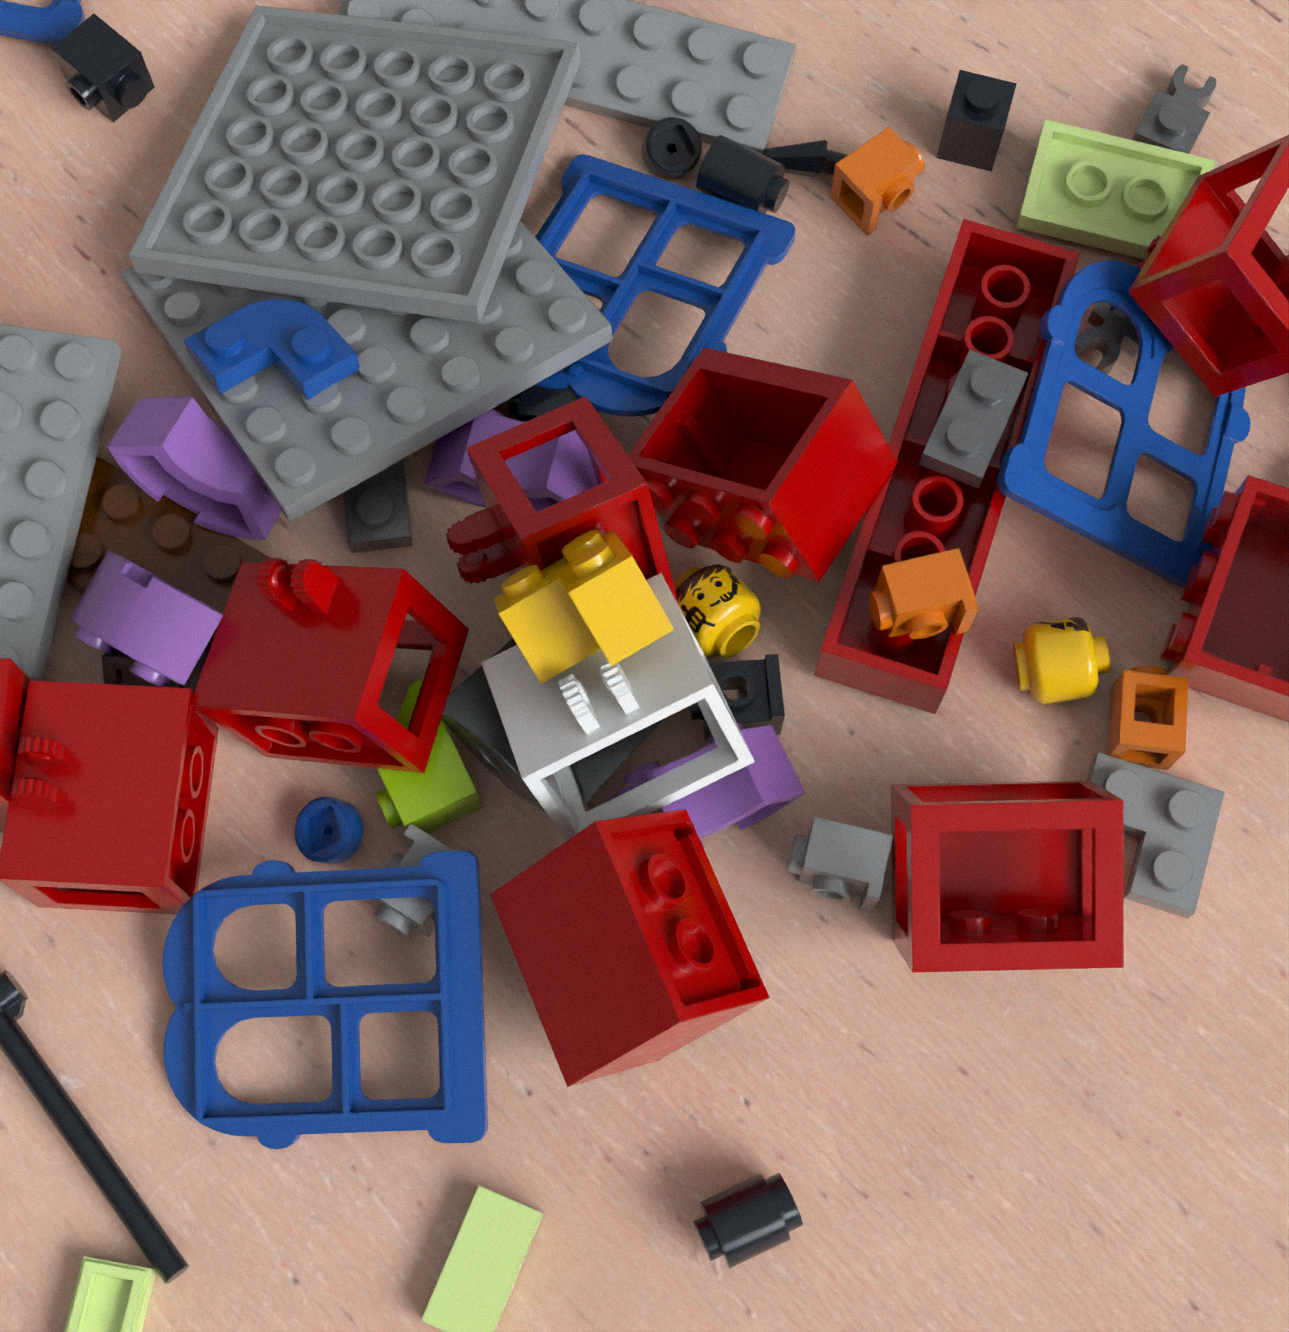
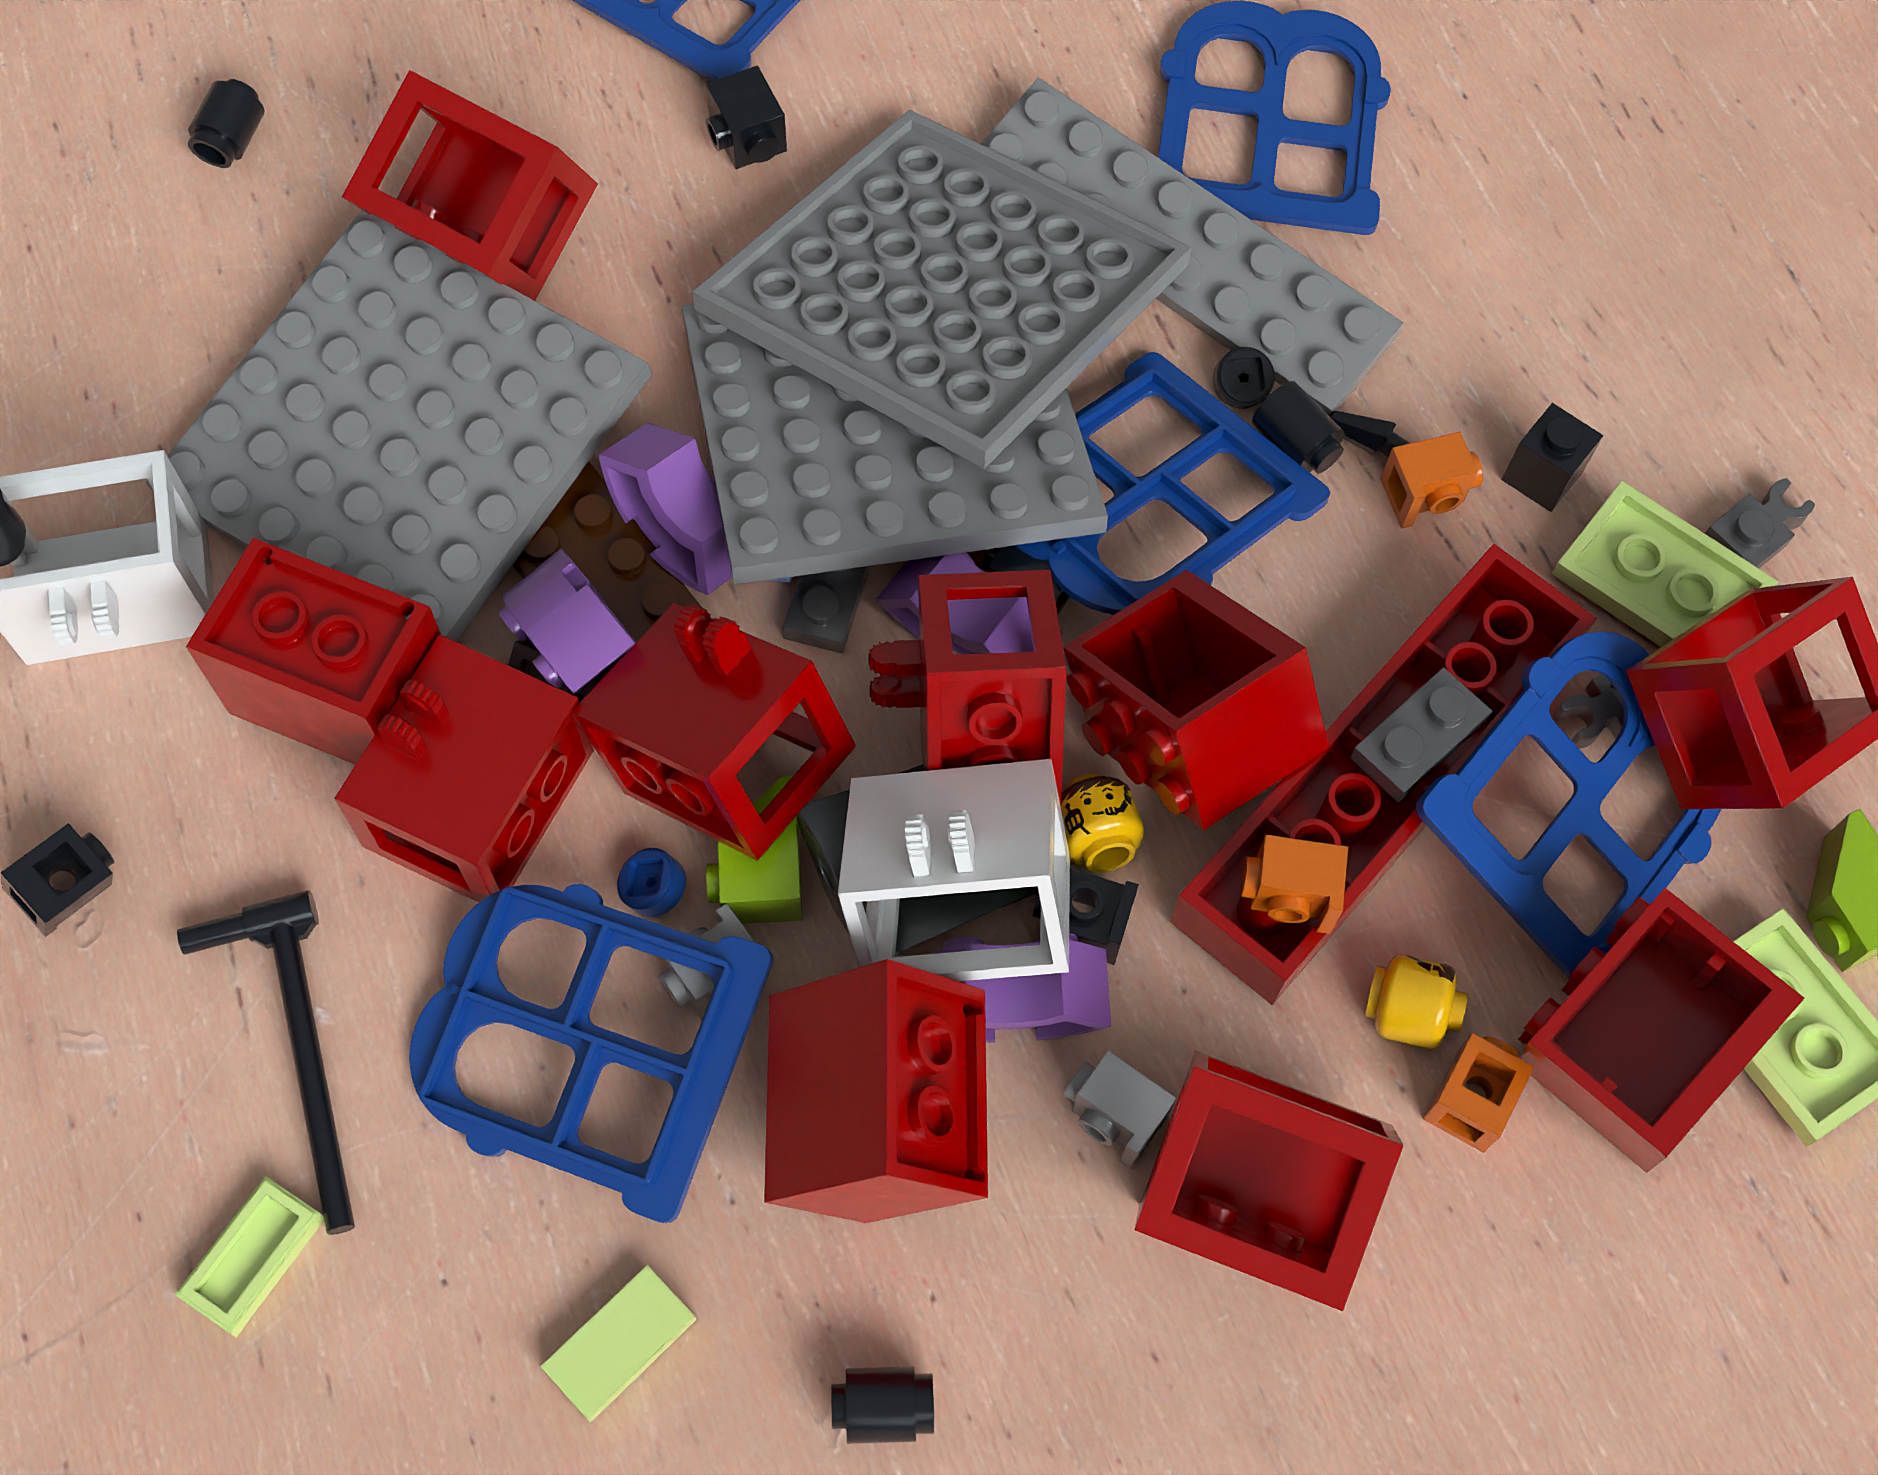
camera: 20 degrees right, 5 degrees down
(272, 333) = (788, 407): blue plate -> none
(581, 606) = (957, 756): yellow brick -> none
(1173, 828) = (1464, 1202): light grey plate -> none

